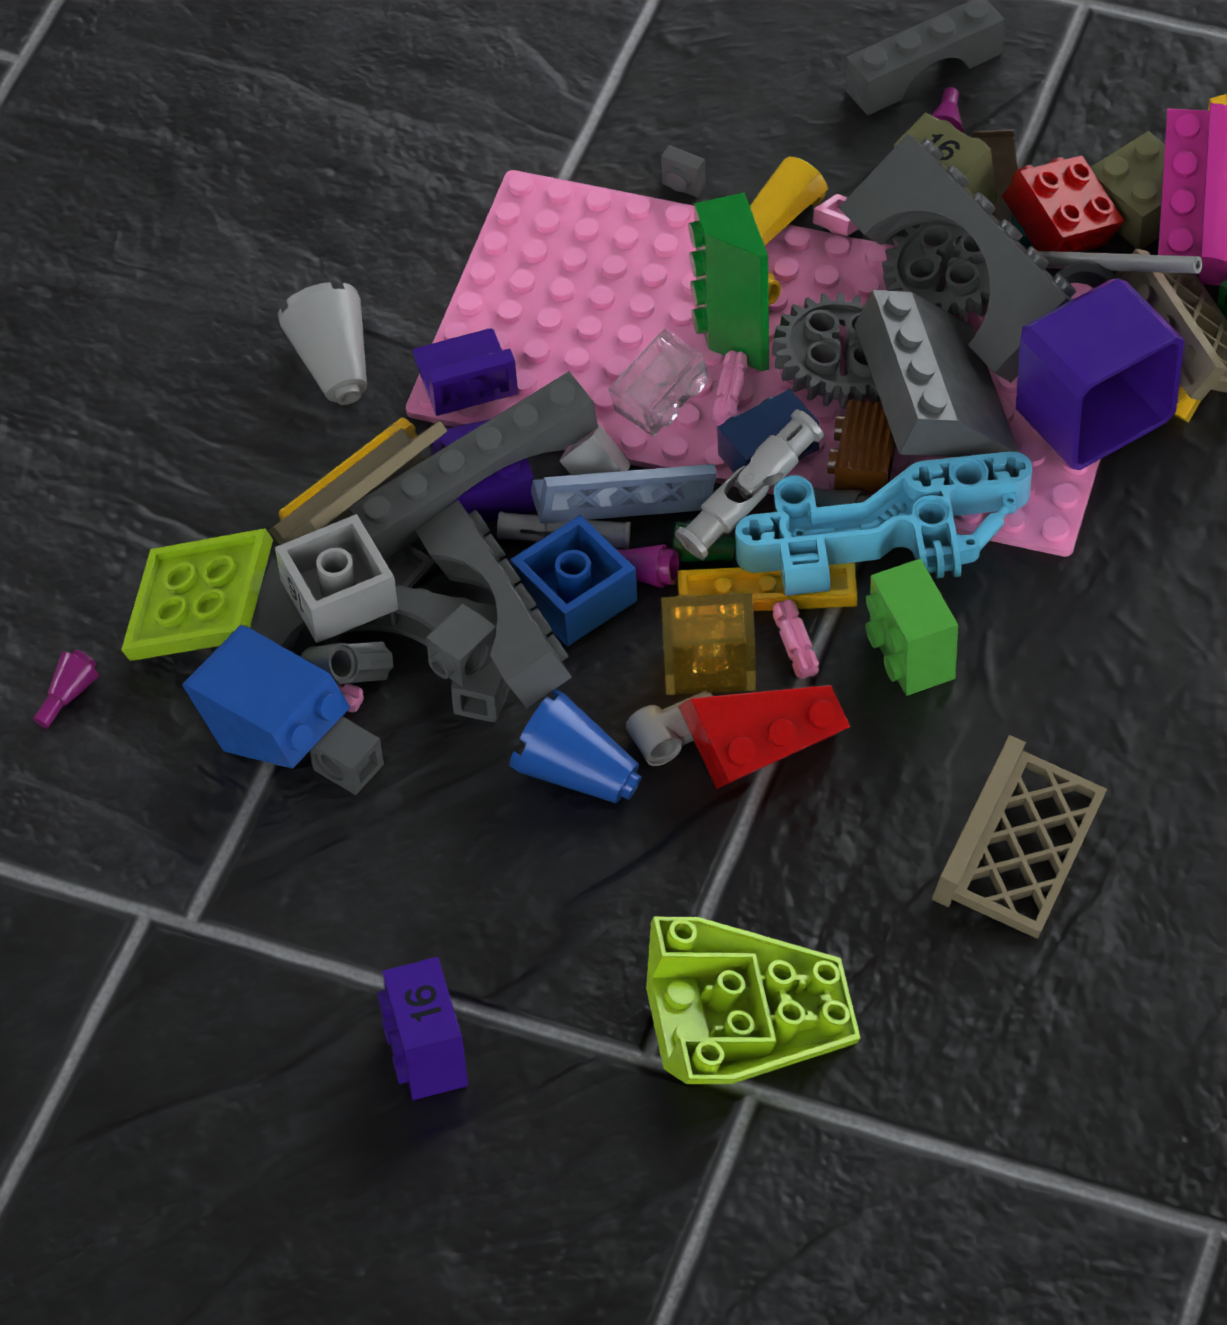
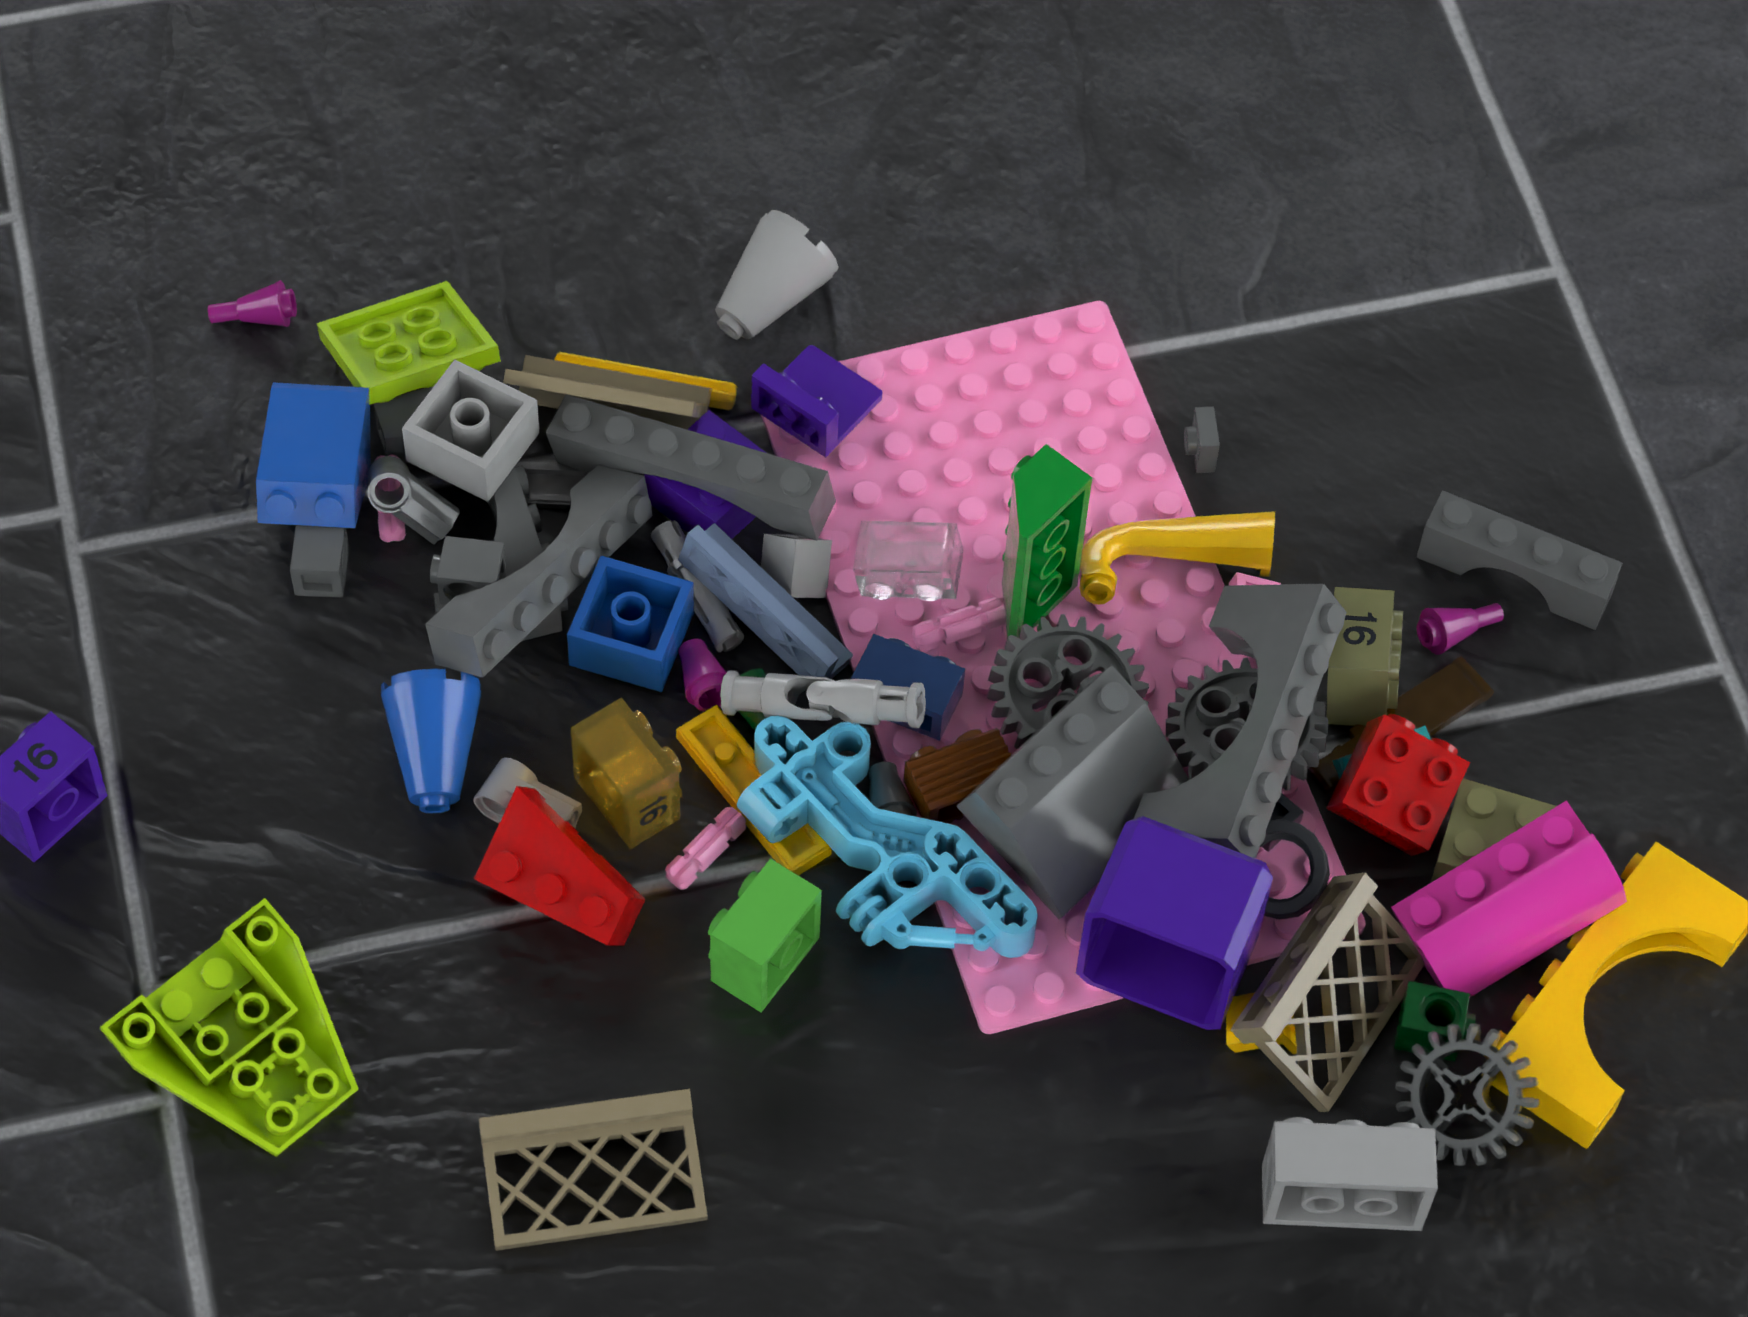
camera: 50 degrees right, 5 degrees up
(1127, 262) = (1335, 857): light grey piece -> none

